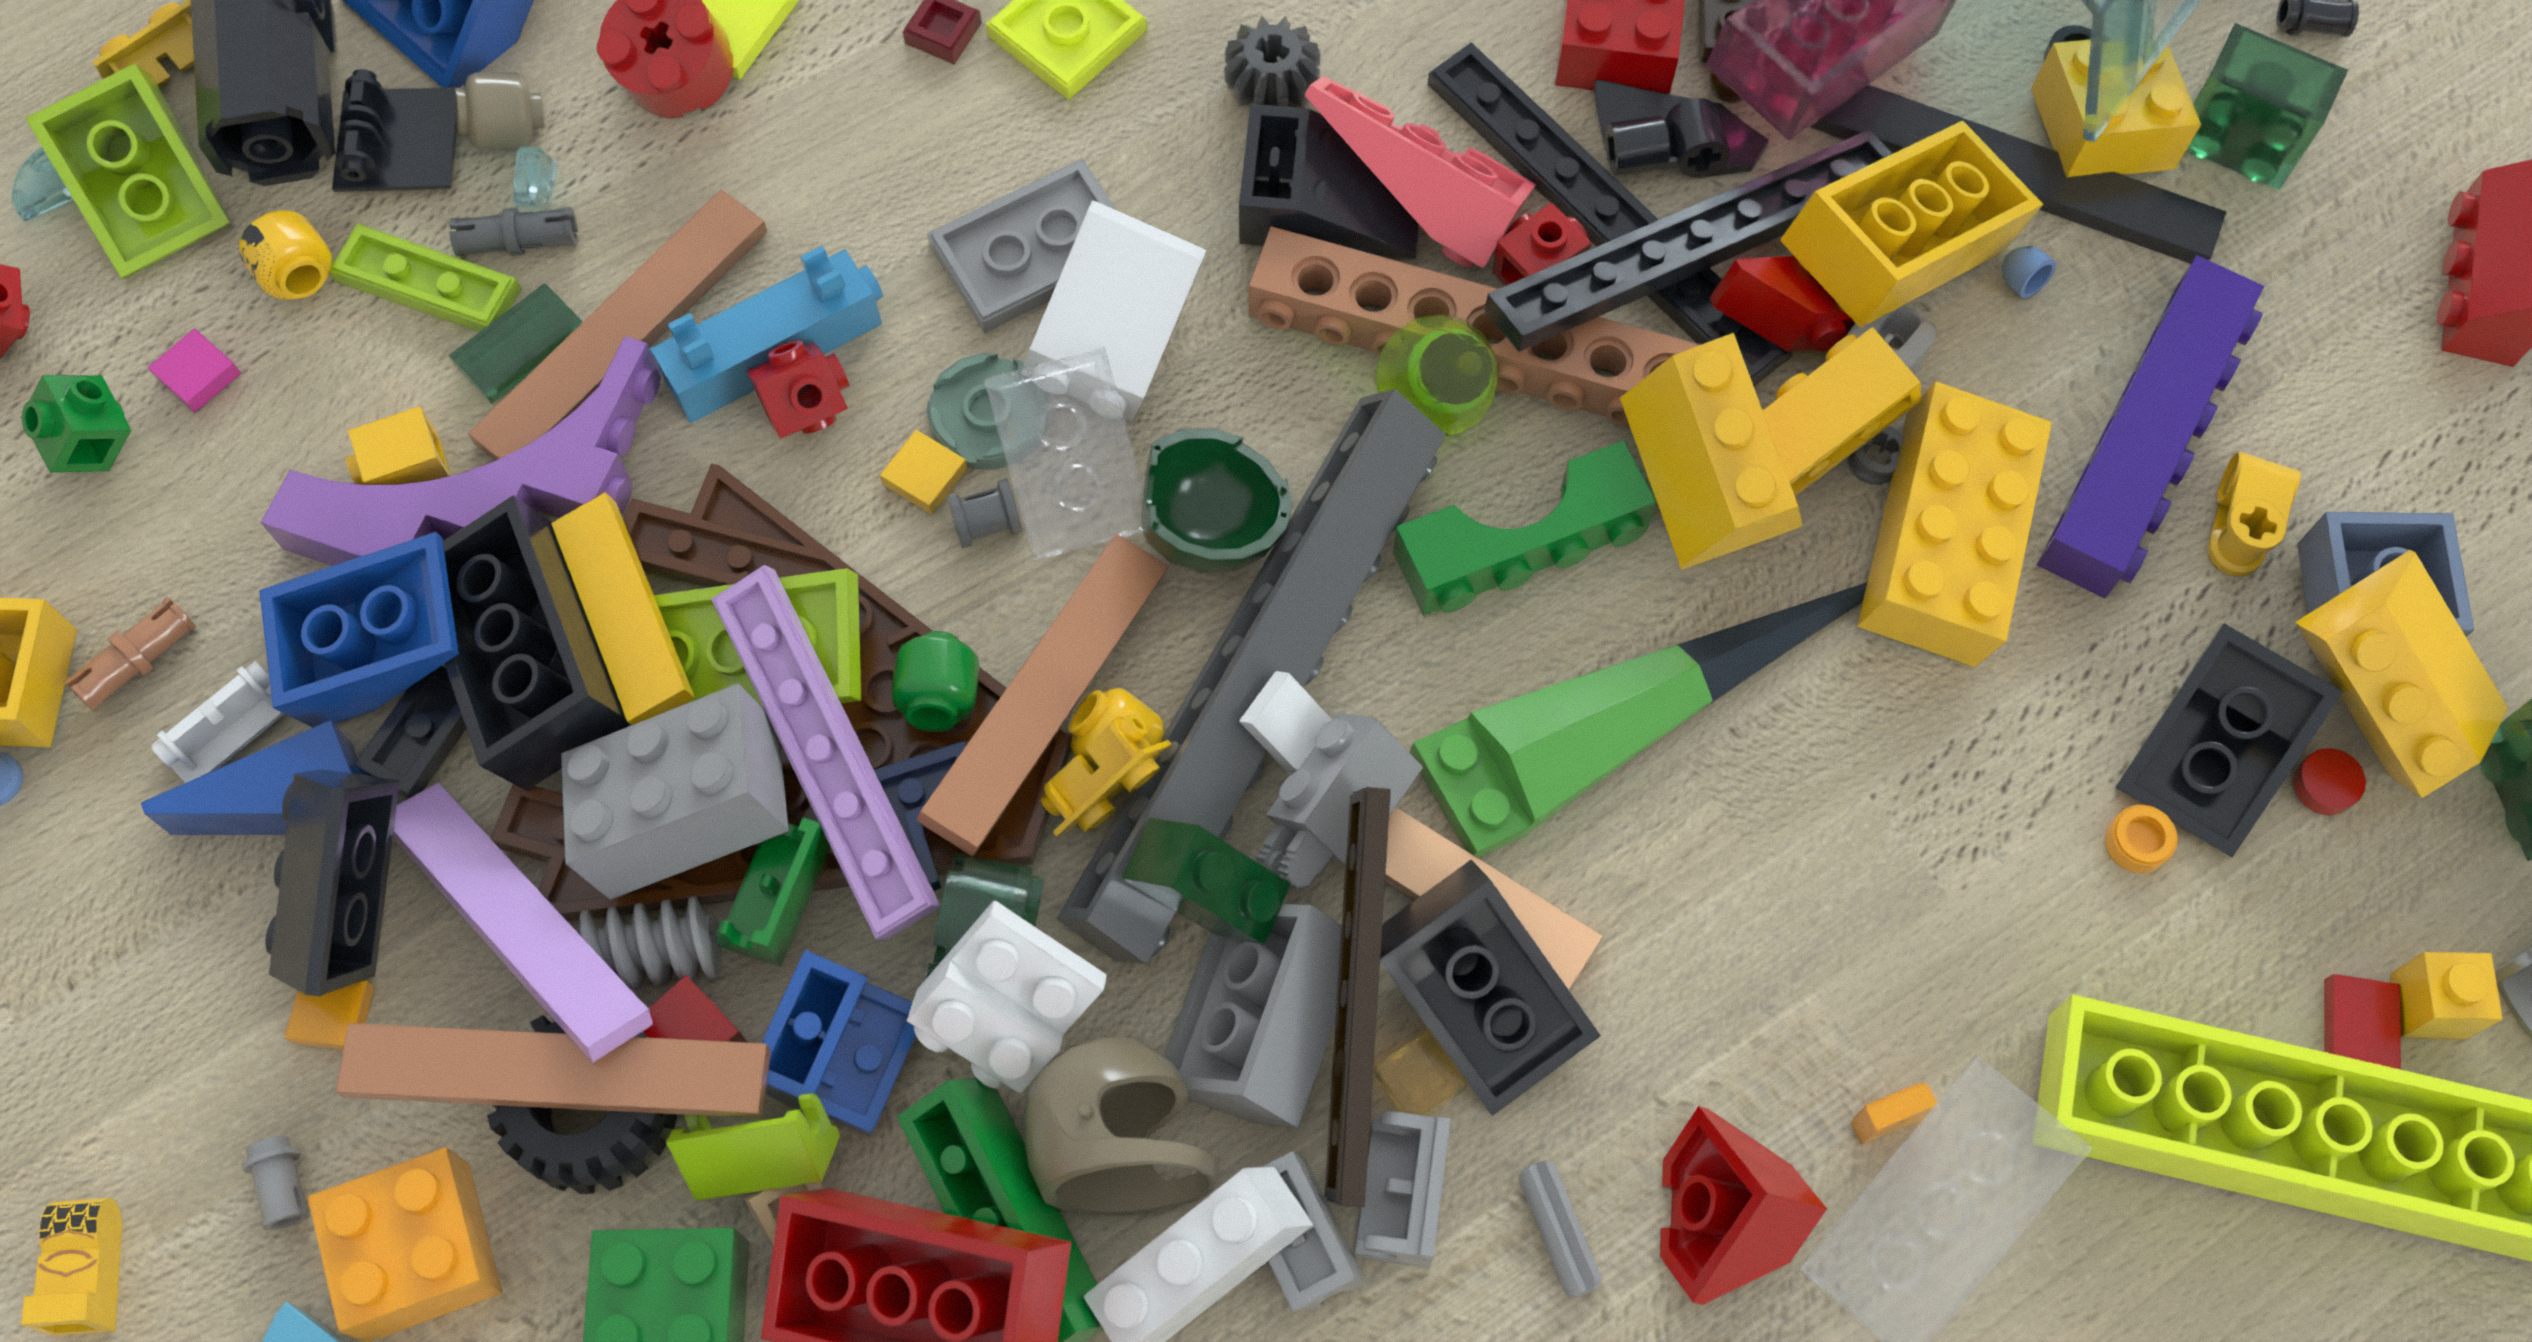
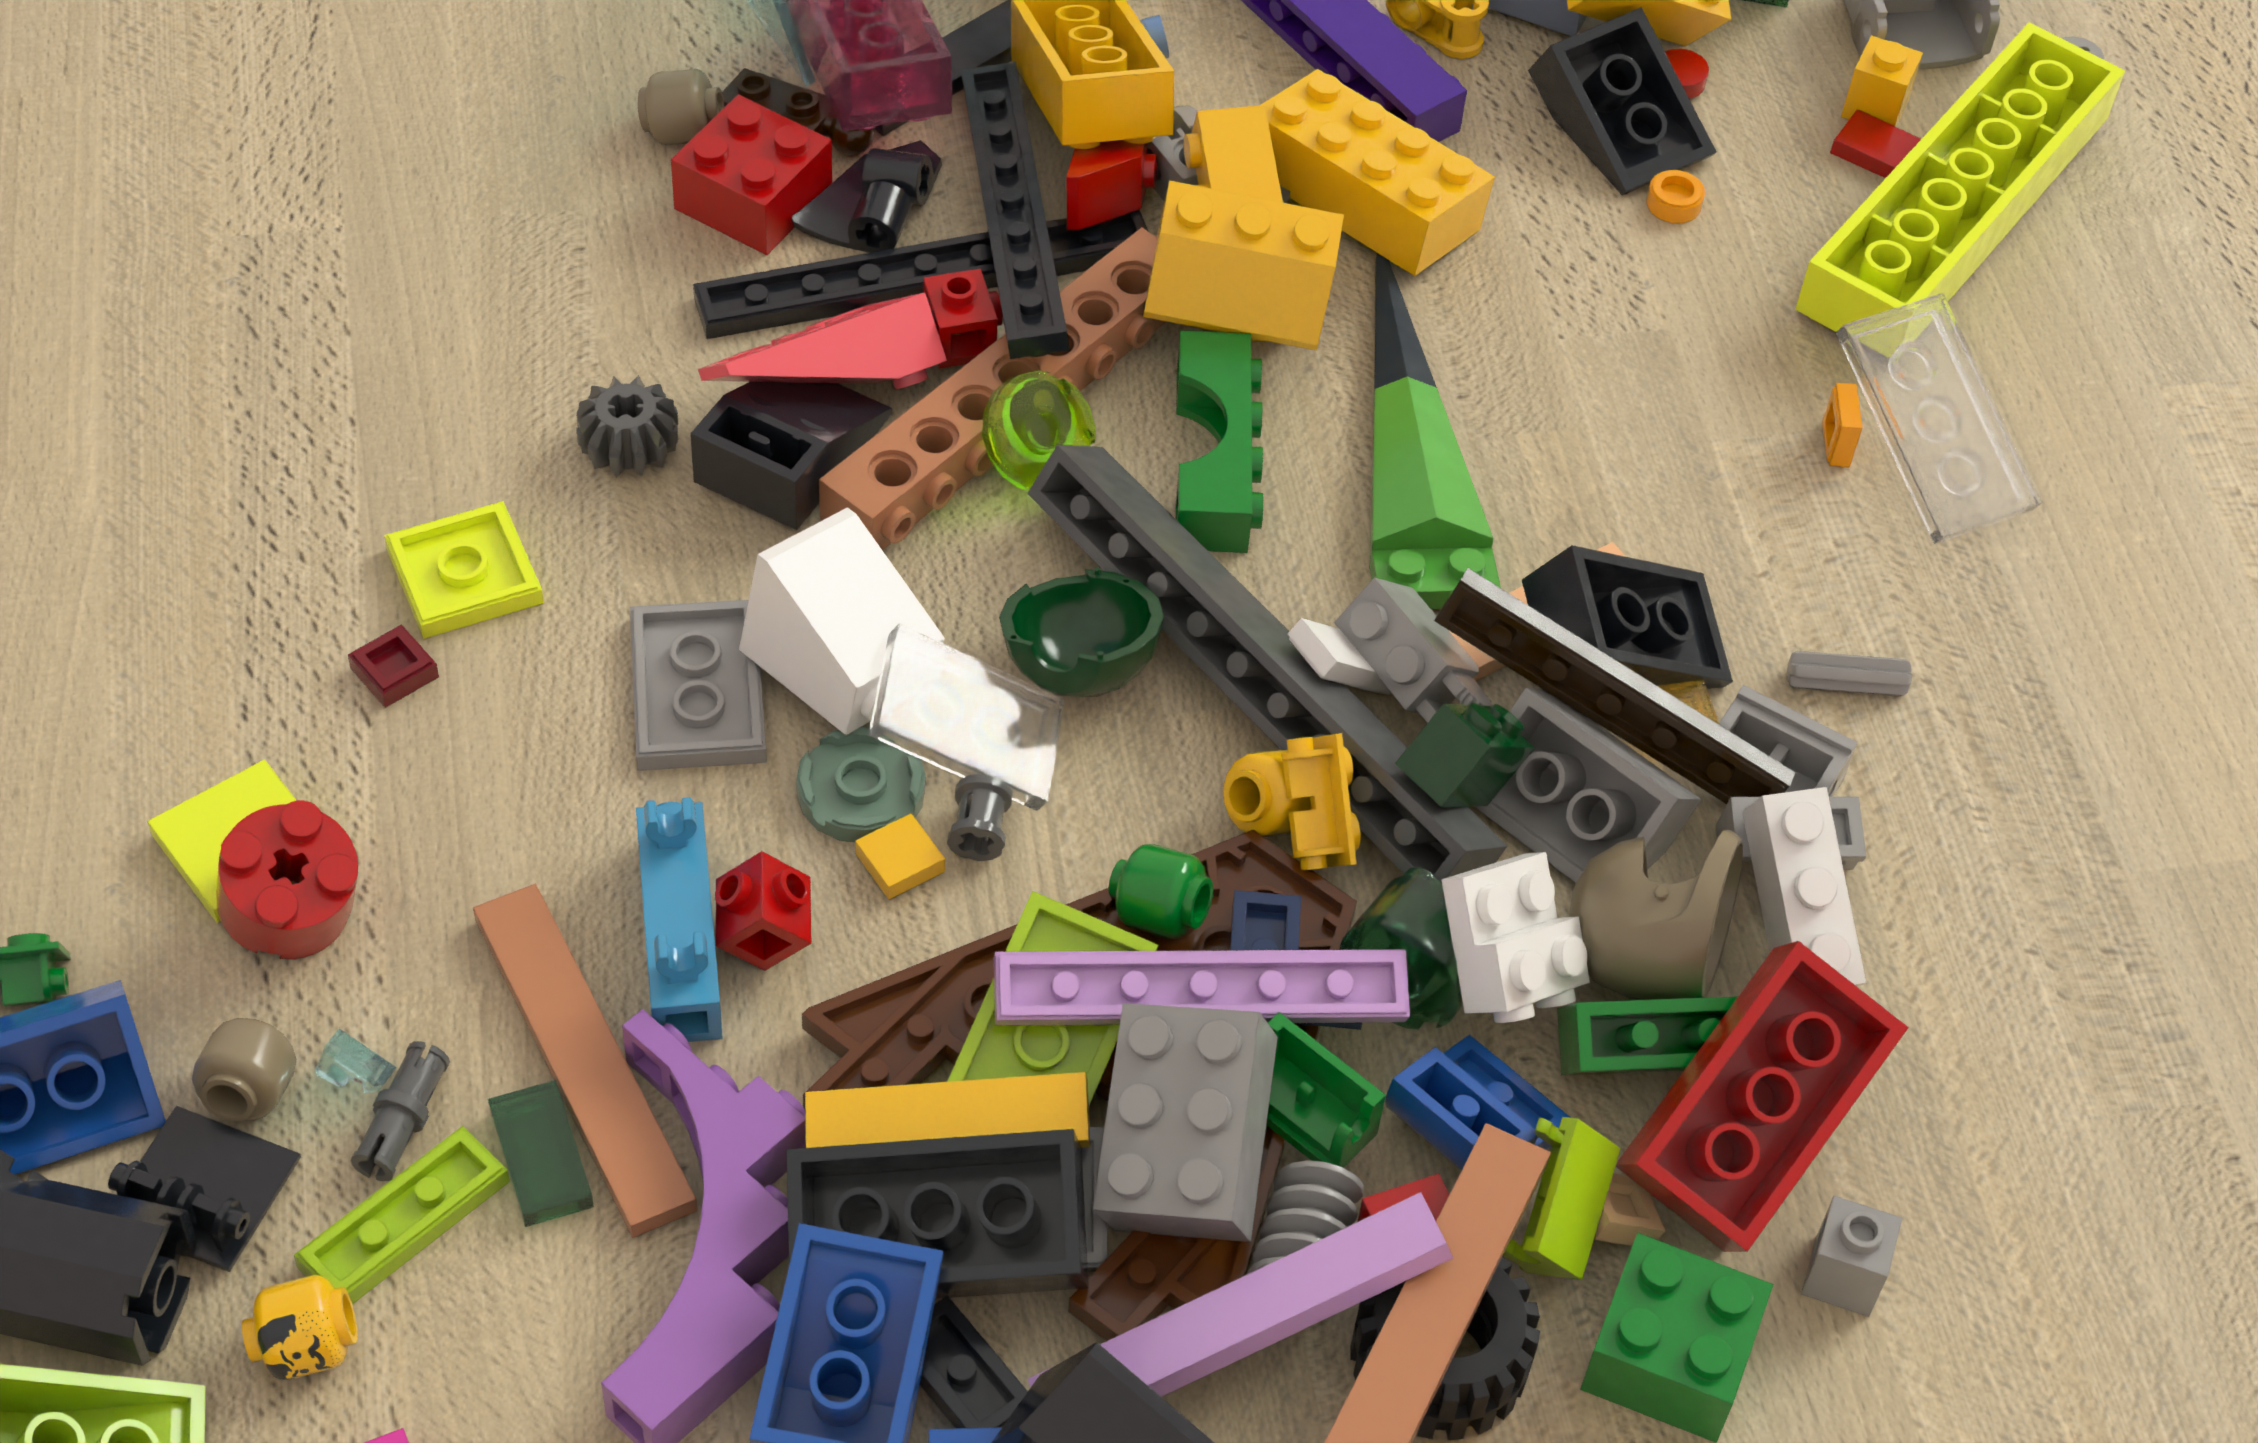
camera: 70 degrees left, 15 degrees down
(397, 451) = (626, 1291): yellow brick -> none
(1041, 695) = (1212, 821): nougat tile -> none
(1732, 1208) = (1879, 555): red slope -> none

